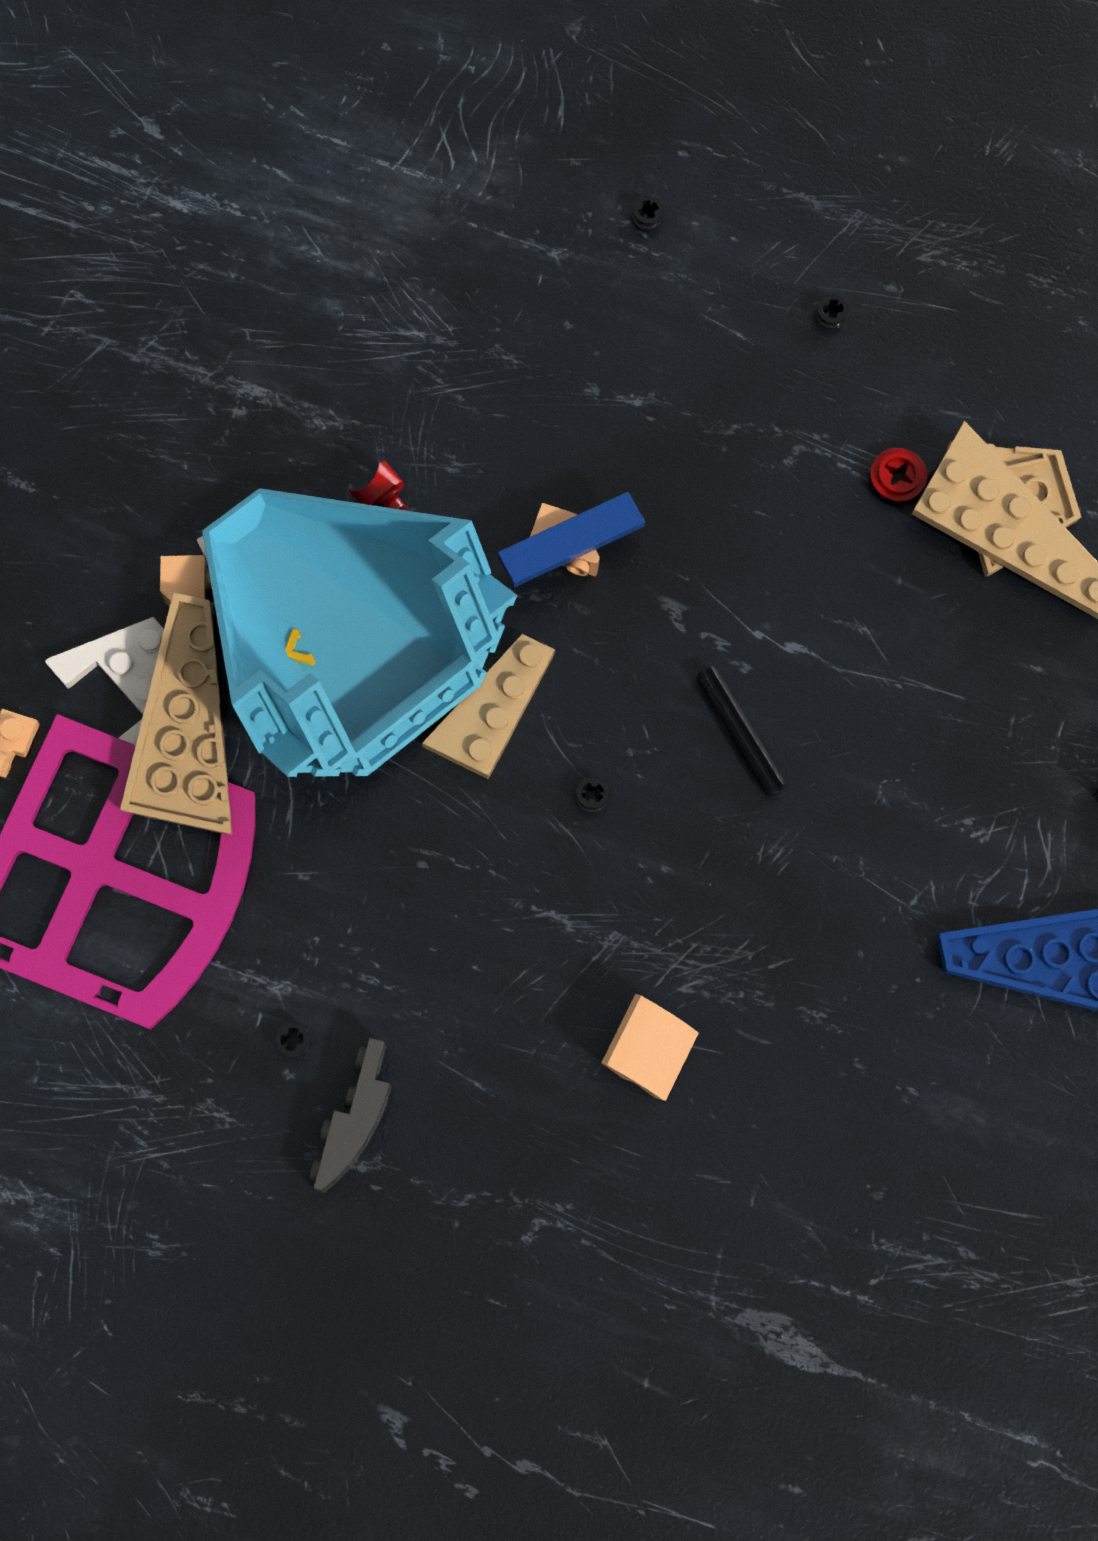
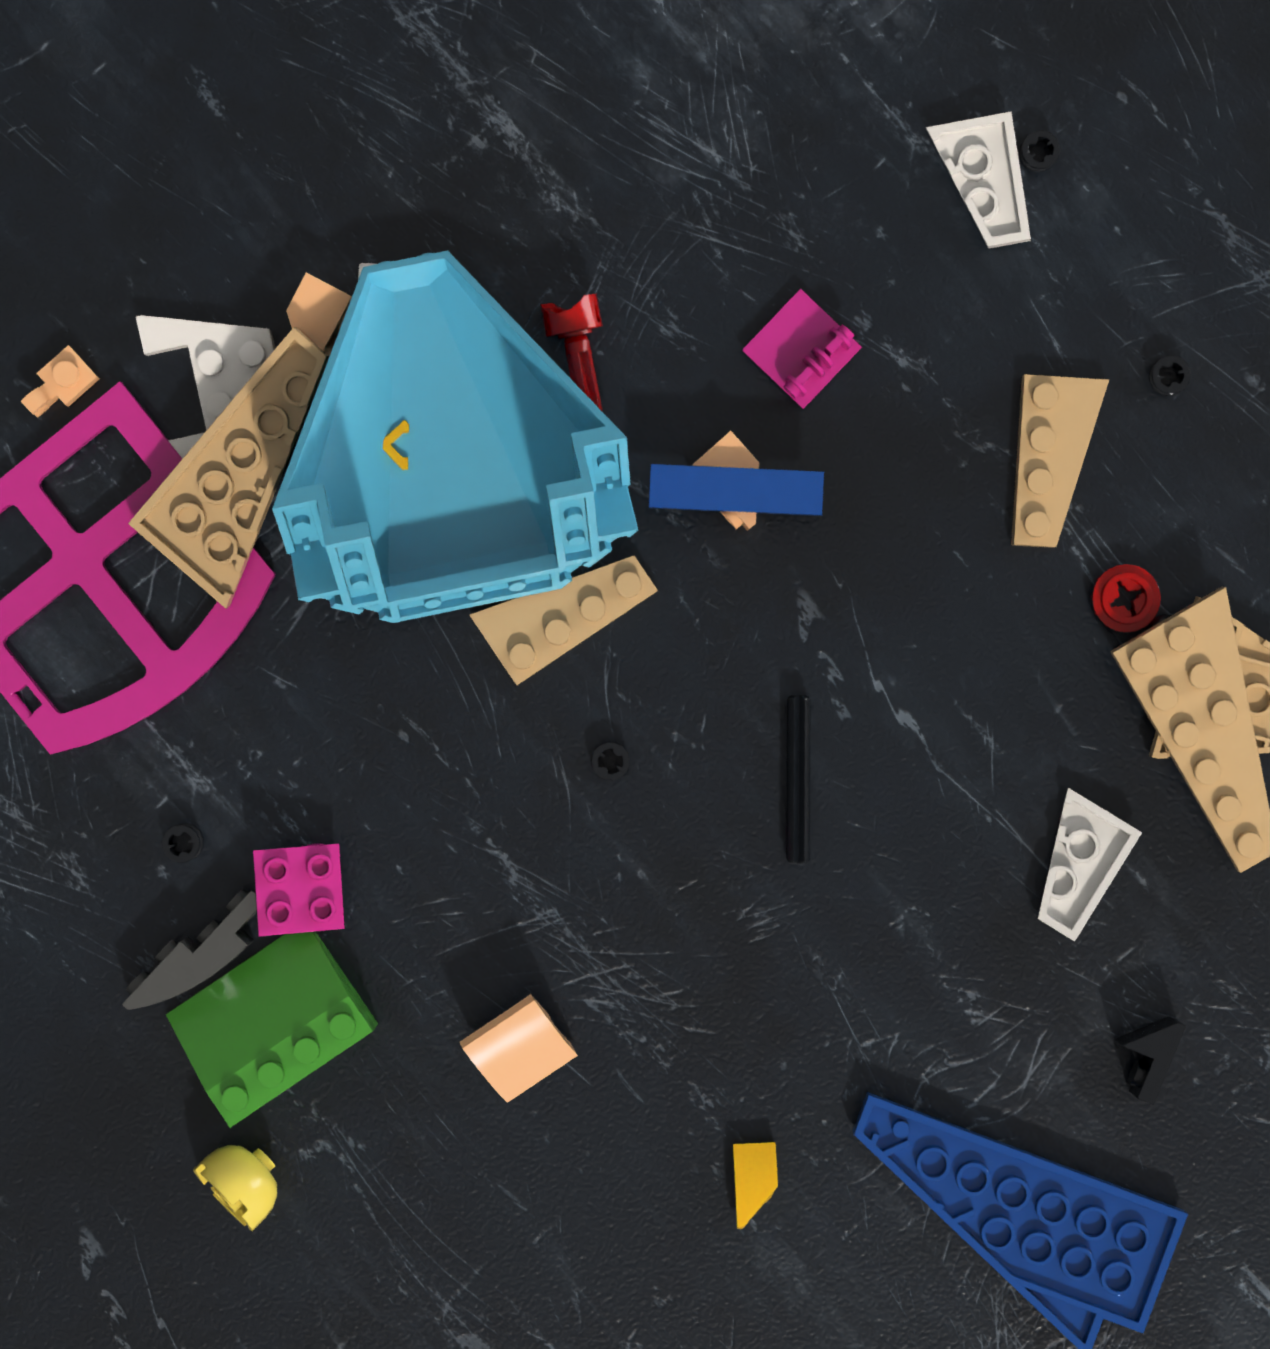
camera: 35 degrees right, 15 degrees up
(406, 1018) = (298, 889): none -> dark pink hinge
(441, 1141) = (270, 1023): none -> bright green slope
(488, 1284) = (240, 1182): none -> light yellow cylinder
(560, 427) = (802, 348): none -> dark pink hinge
(620, 245) = (987, 174): none -> white wing
(779, 400) = (1052, 443): none -> tan wing
(892, 1049) = (754, 1178): none -> yellow slope
(988, 675) = (1083, 863): none -> white wing

